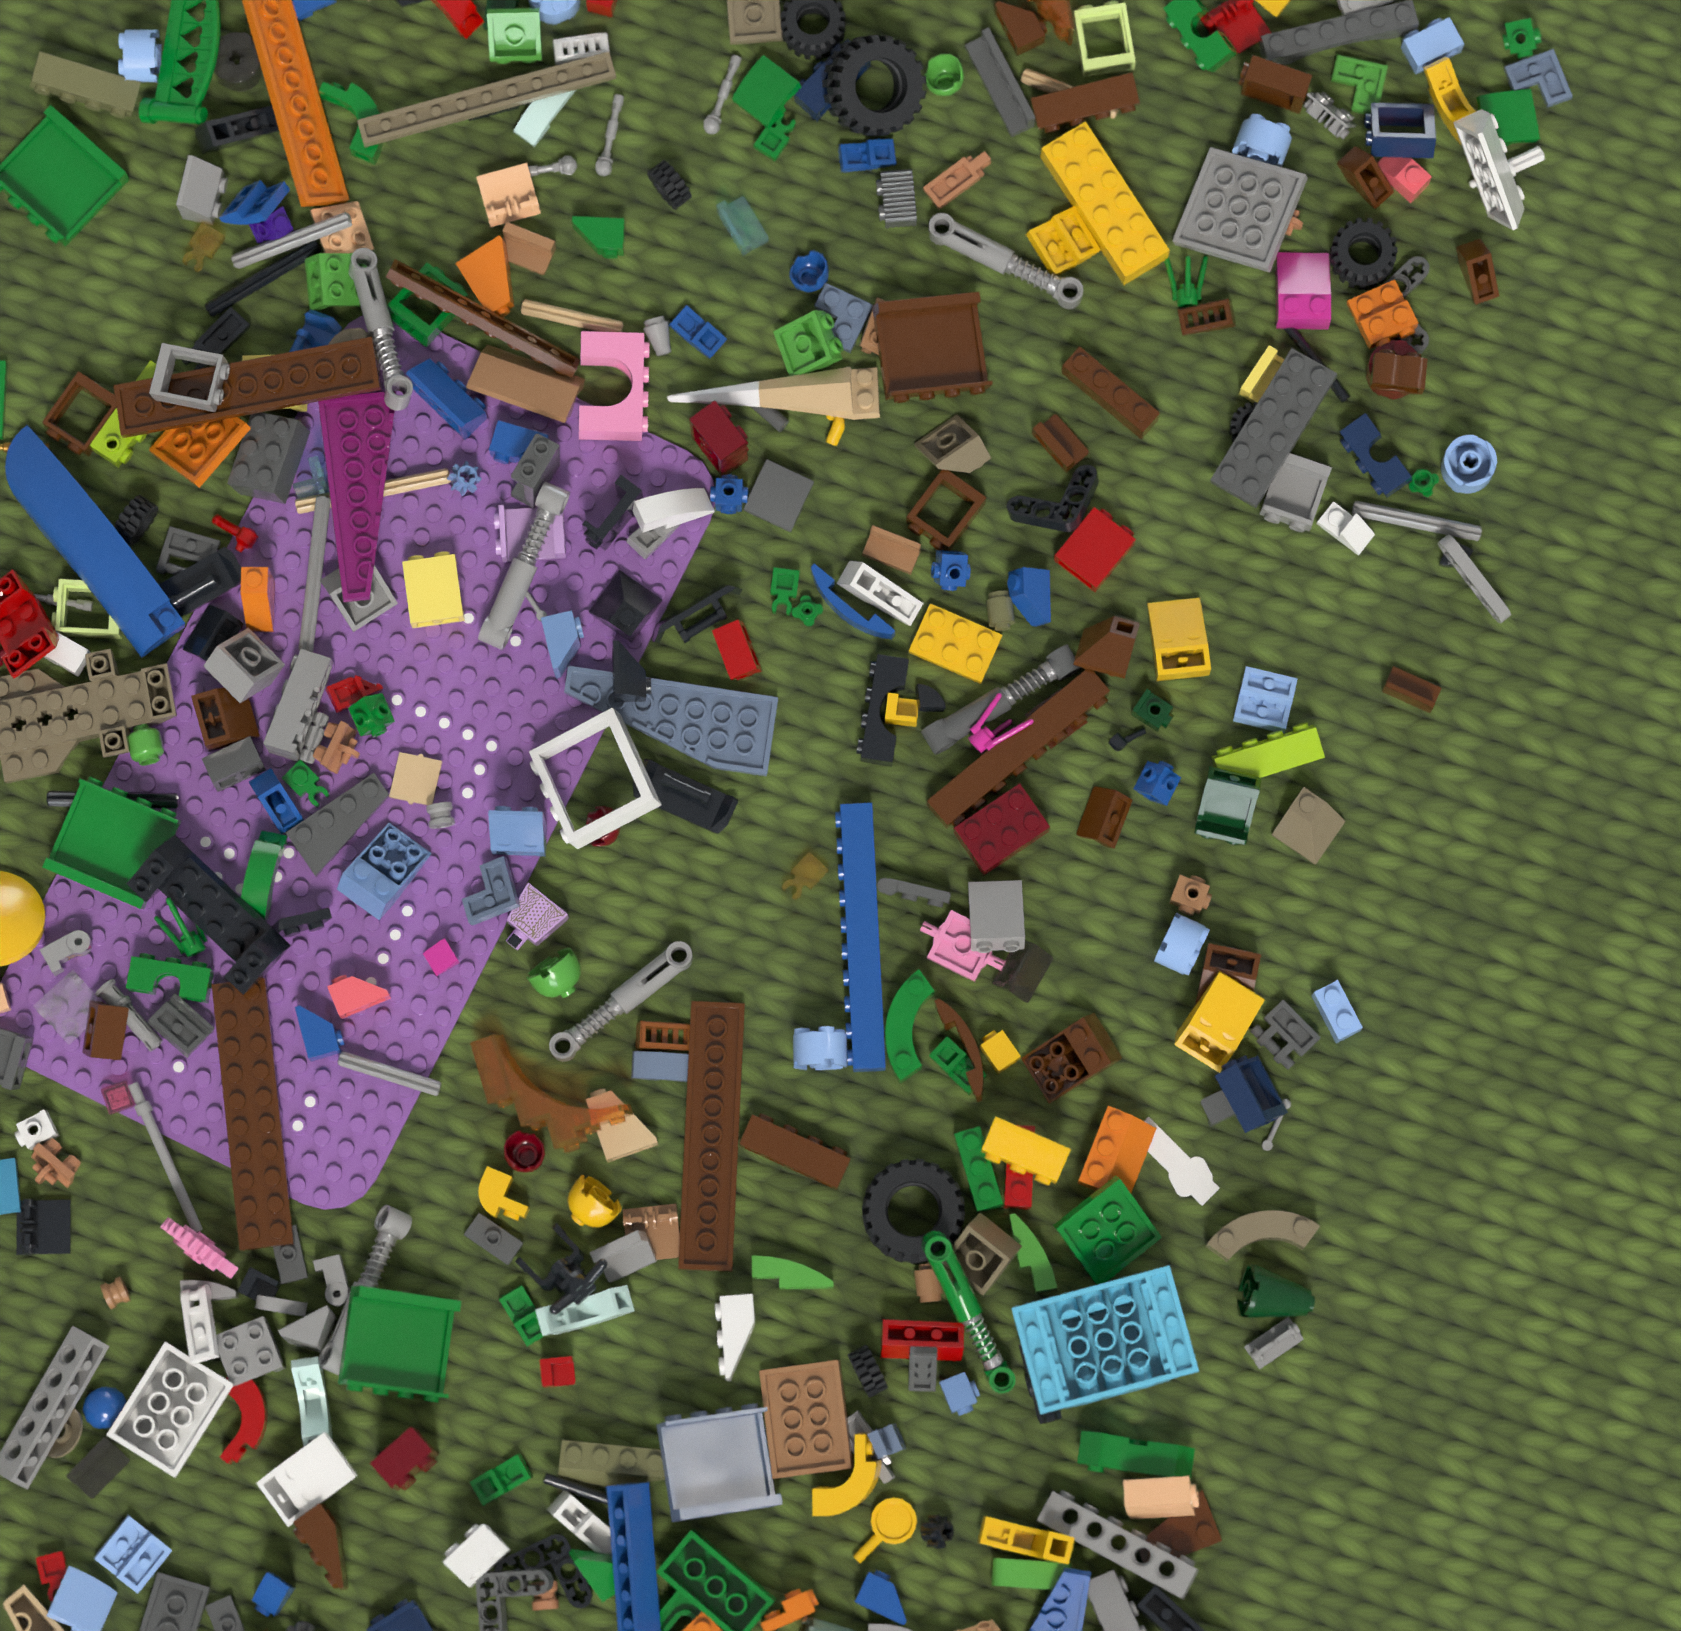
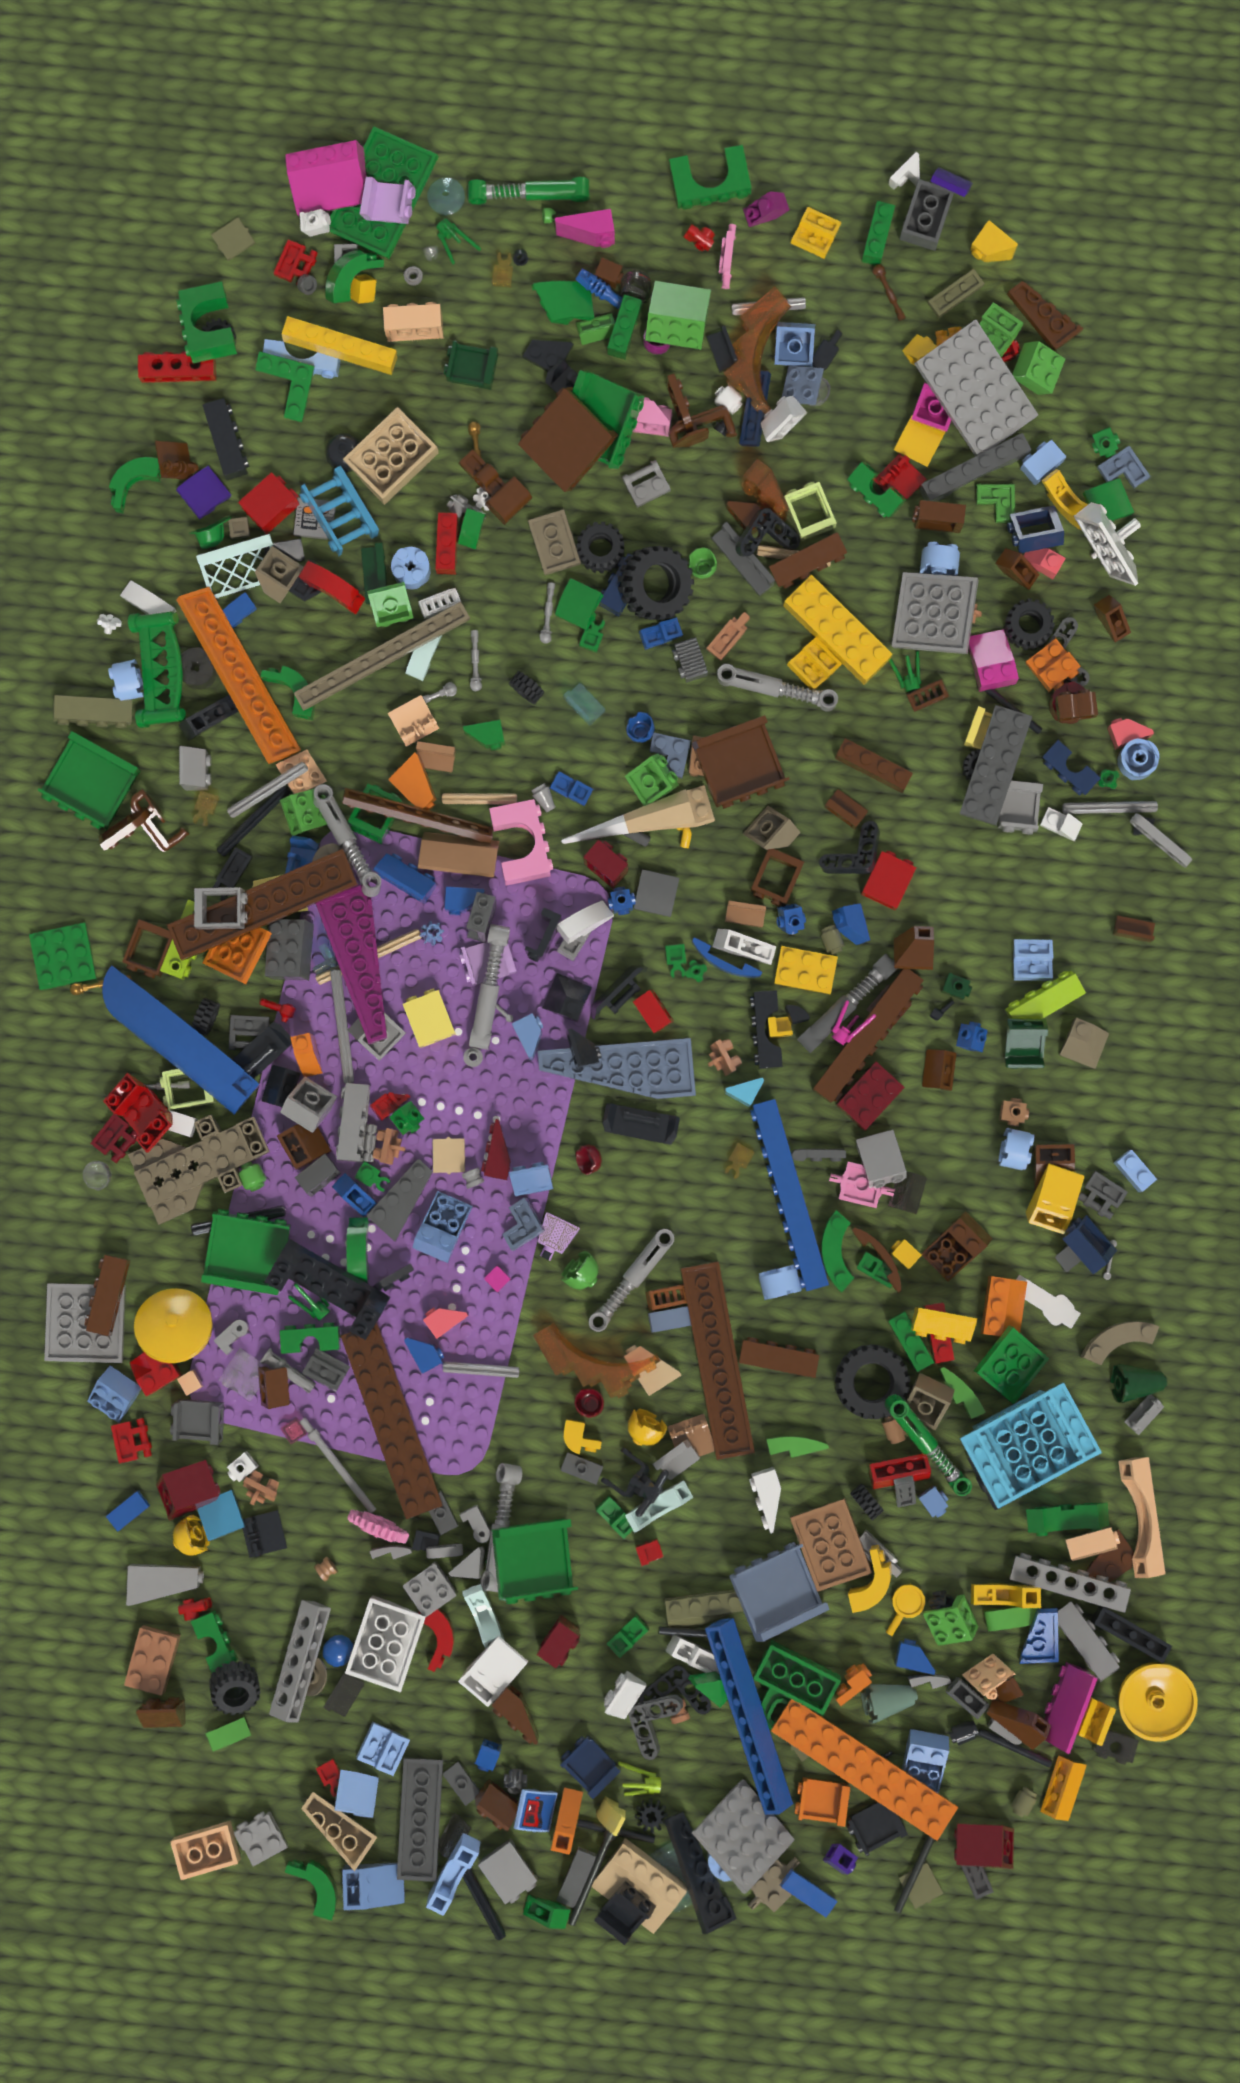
camera: 10 degrees left, 5 degrees up
(116, 238) = (142, 817): none -> reddish brown plate
(199, 1324) = (391, 1580): white plate -> none
(254, 203) = (234, 769): blue slope -> none
(273, 228) = (249, 781): dark purple brick -> none
(481, 791) = (498, 1158): none -> dark red slope
(482, 663) = (477, 1062): none -> light grey plate
(615, 819) = (600, 1109): white window -> none
(812, 733) = (721, 1058): none -> nougat hips
(834, 783) = (745, 1092): none -> medium azure slope
(887, 1441) = (892, 1548): sand blue slope -> none
(945, 1561) = (952, 1623): none -> bright green bracket
(1038, 45) = (763, 527): none -> black beam
(1179, 639) = (963, 931): yellow slope -> none
(1234, 1534) = (1148, 1554): none -> light nougat arch
(1321, 101) = (976, 521): light grey hinge -> none
(1461, 421) = (1126, 730): none -> coral slope

